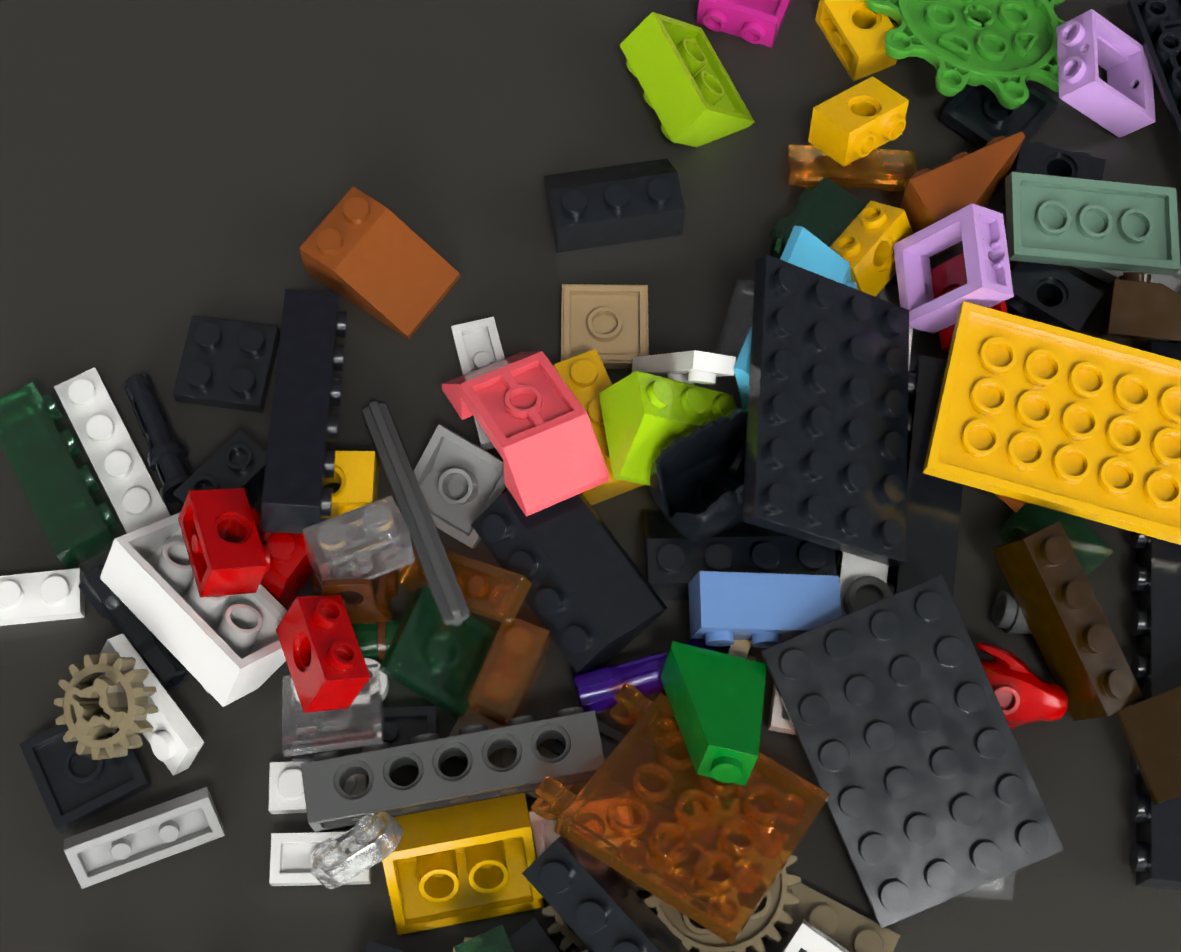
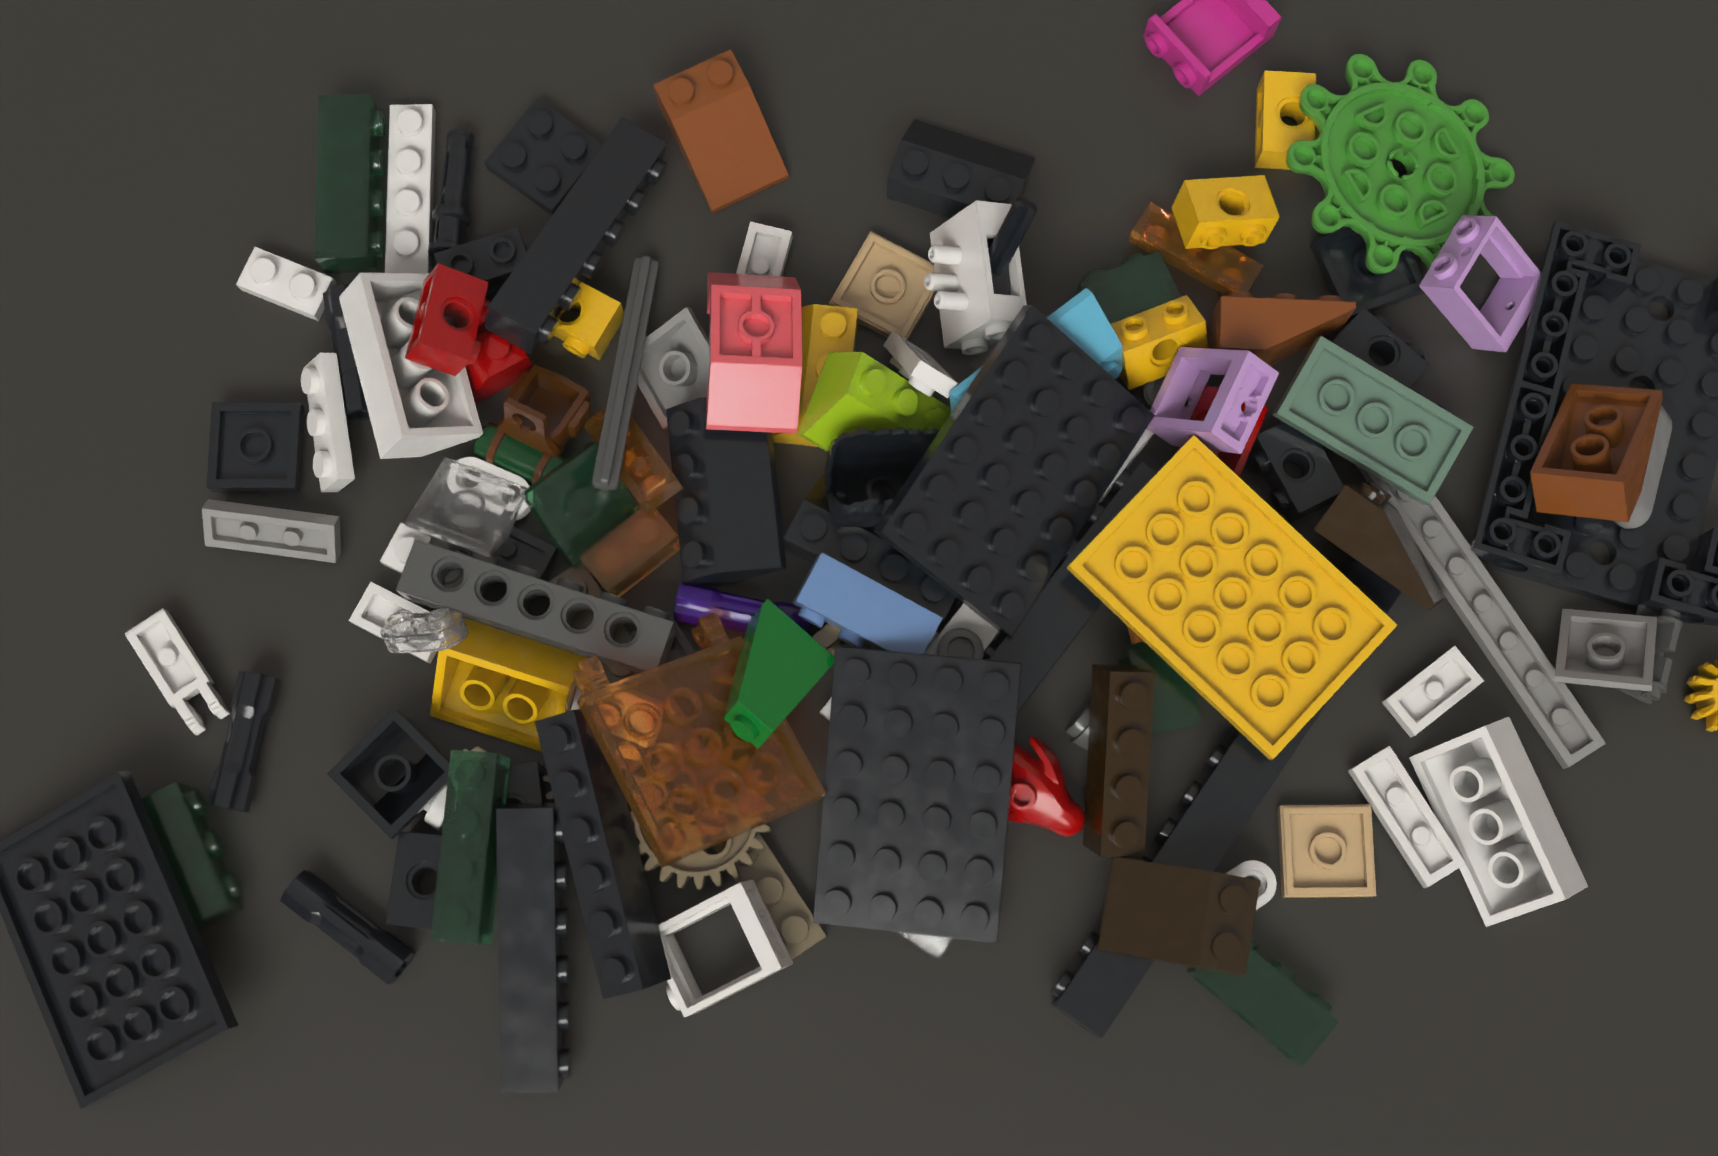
camera: 30 degrees right, 10 degrees up
(105, 705) = (289, 408): dark tan gear -> none
(322, 653) = (477, 457): red brick -> none
(360, 543) = (558, 379): clear brick -> none
(684, 81) = (1093, 92): lime slope -> none
(687, 265) = (979, 272): none -> white piece

